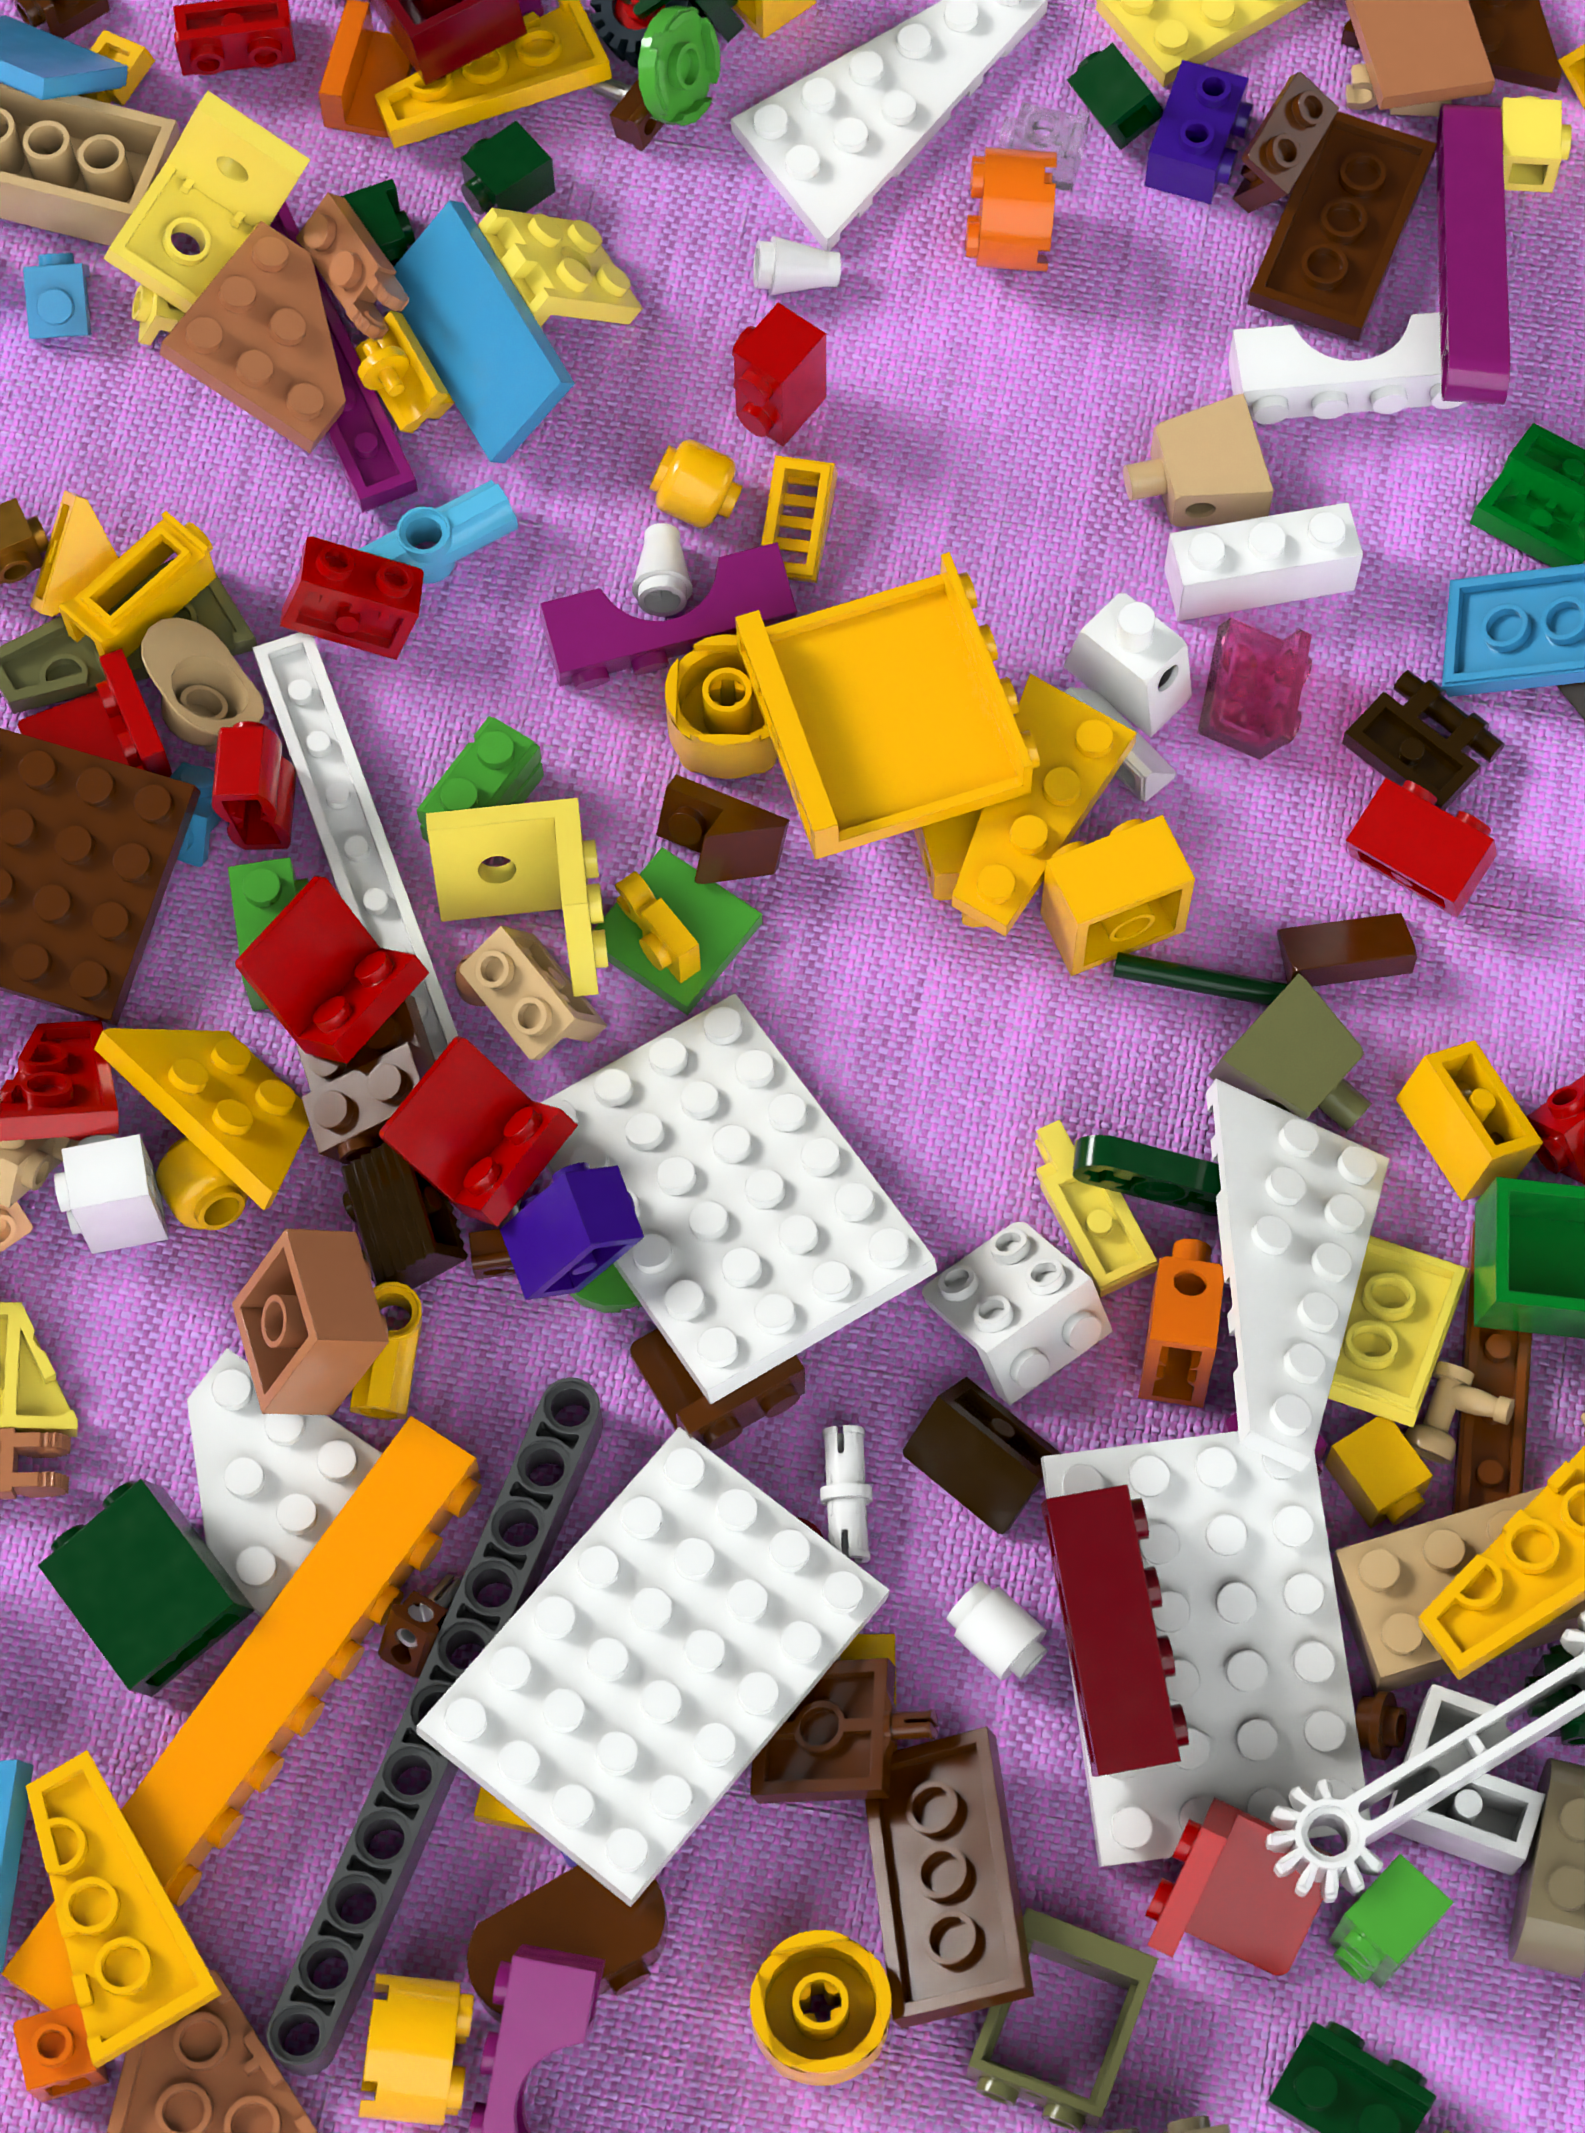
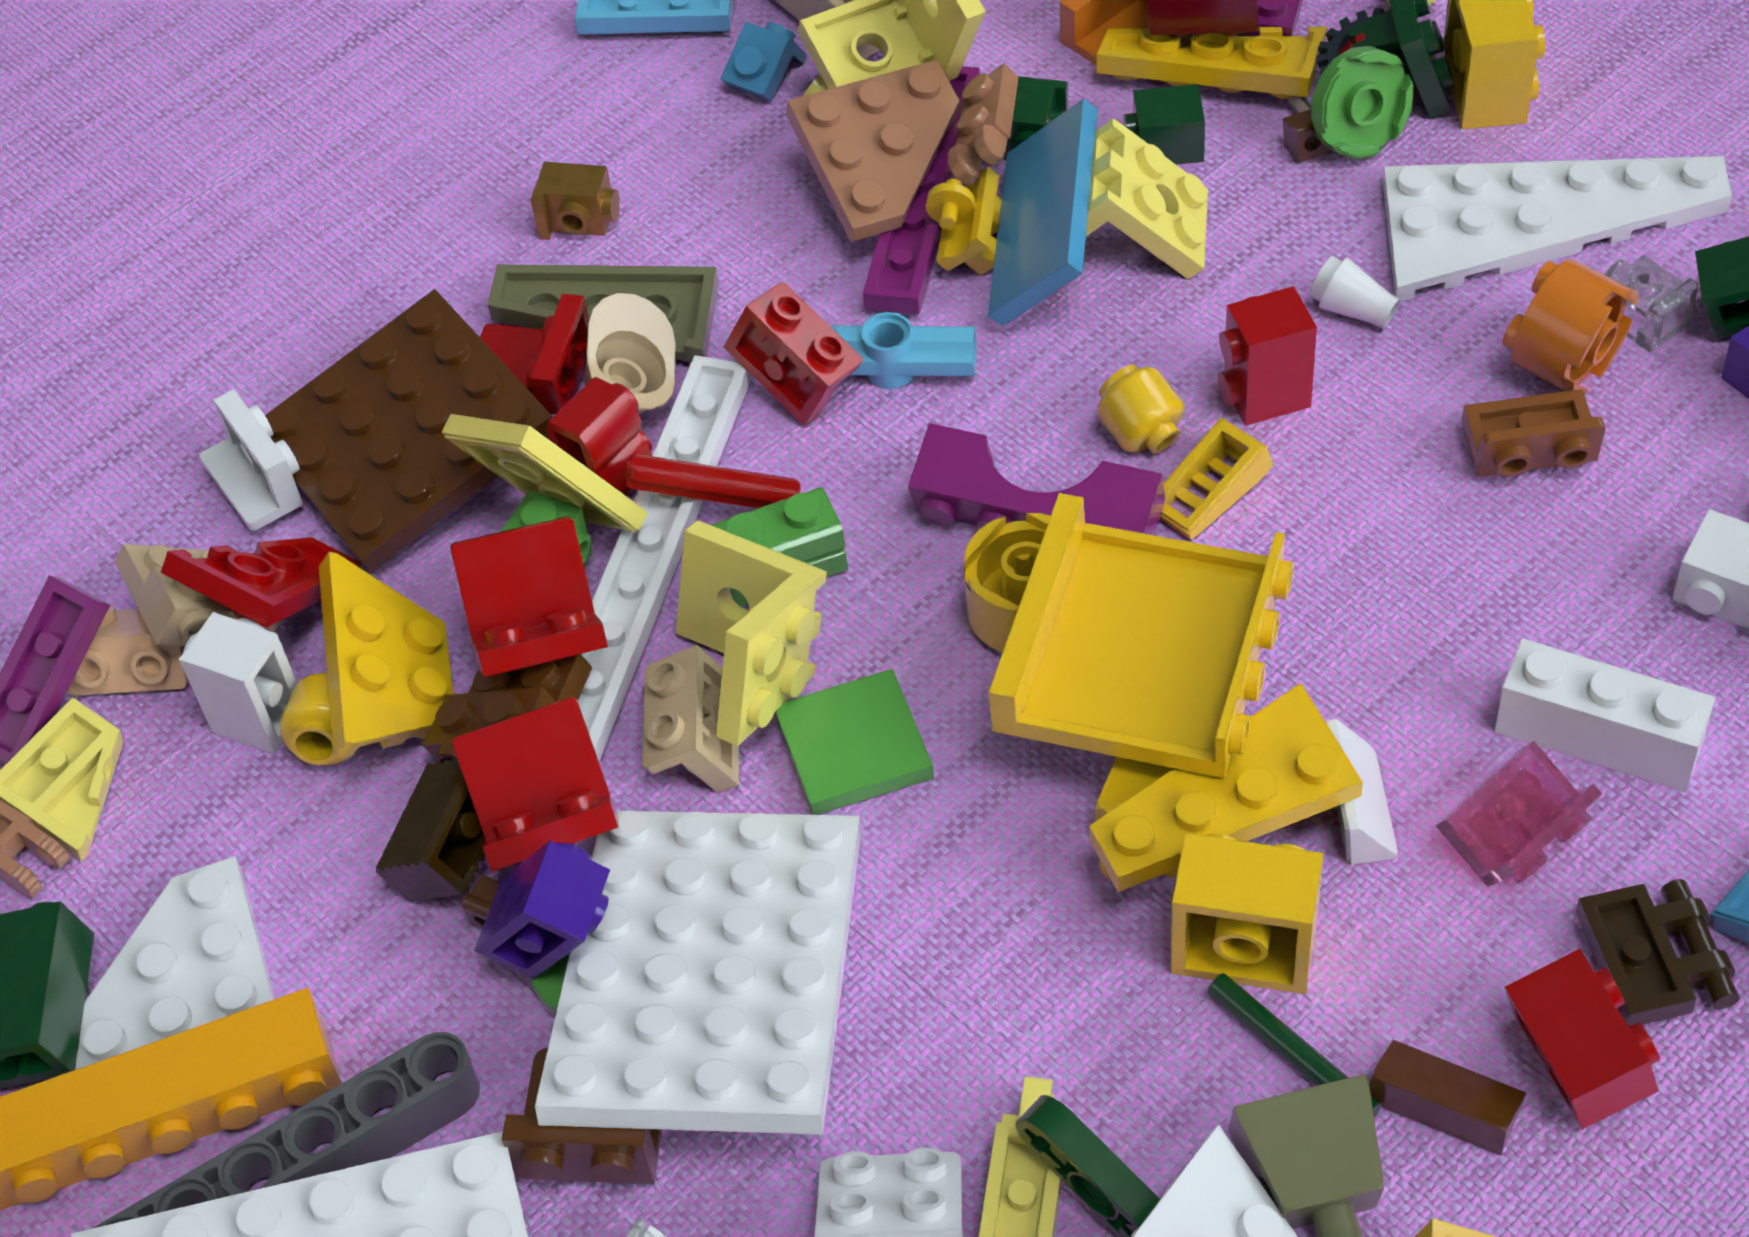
camera: 40 degrees right, 15 degrees down
(74, 555) = (619, 229): yellow slope -> none
(155, 600) = (653, 264): yellow window -> none
(244, 843) = (539, 465): none -> light yellow tile
(310, 1322) = (292, 863): nougat brick -> none
(377, 765) = (707, 482): none -> red axle
(387, 1383) = (344, 936): yellow piece -> none
(415, 1626) = (169, 1159): reddish brown piece -> none
(662, 575) = (1062, 460): white cone -> none
(664, 937) = (826, 733): yellow plate -> none
(727, 832) = (944, 682): reddish brown slope -> none
(1036, 328) = (1532, 433): none -> dark orange bracket
(1126, 658) = (1404, 712): white torso -> none
(1205, 467) = (1606, 607): tan torso -> none

